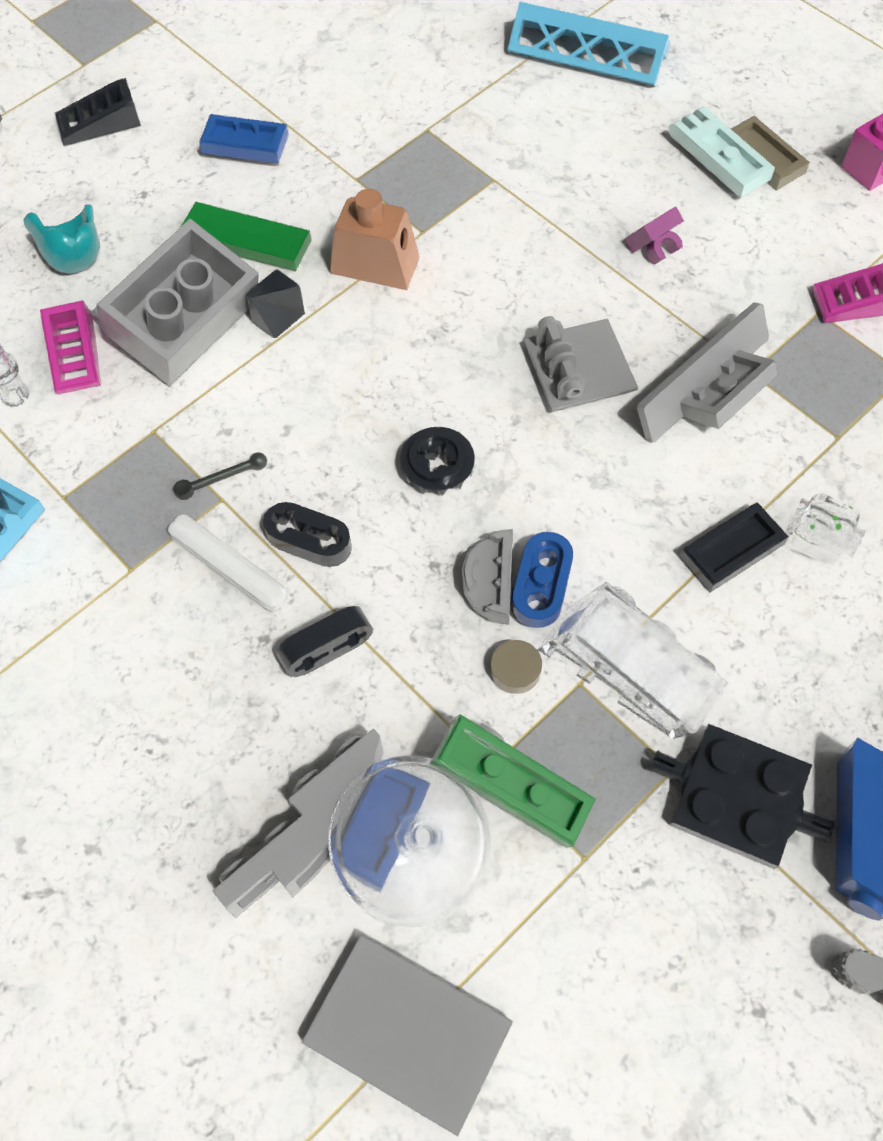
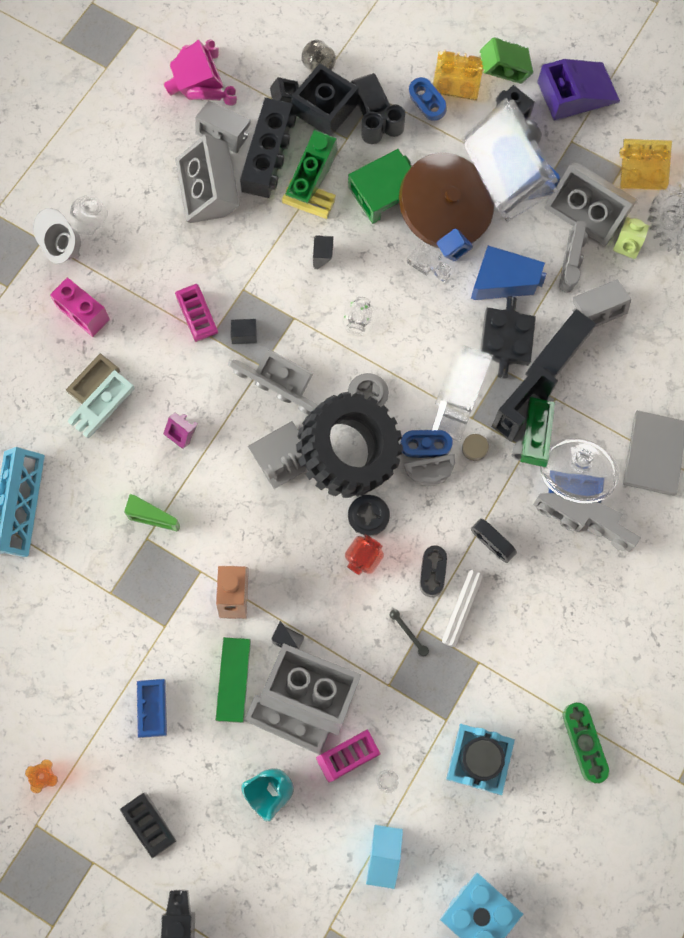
camera: 110 degrees left, 10 degrees up
(209, 24) = (33, 773): none -> clear orange plate
(369, 431) = (364, 554): none -> clear red head
(527, 175) = (146, 513): none -> bright green slope
(552, 368) = (371, 423): none -> black tyre
(563, 720) = (508, 419): none -> black panel
(657, 494) = (363, 382): none -> light grey gear
(693, 895) = (564, 343): none -> black slope
(733, 547) = (377, 358): black tile -> none
(787, 1025) = (603, 302): none -> light grey hinge
(821, 352) = (243, 331): none -> black slope

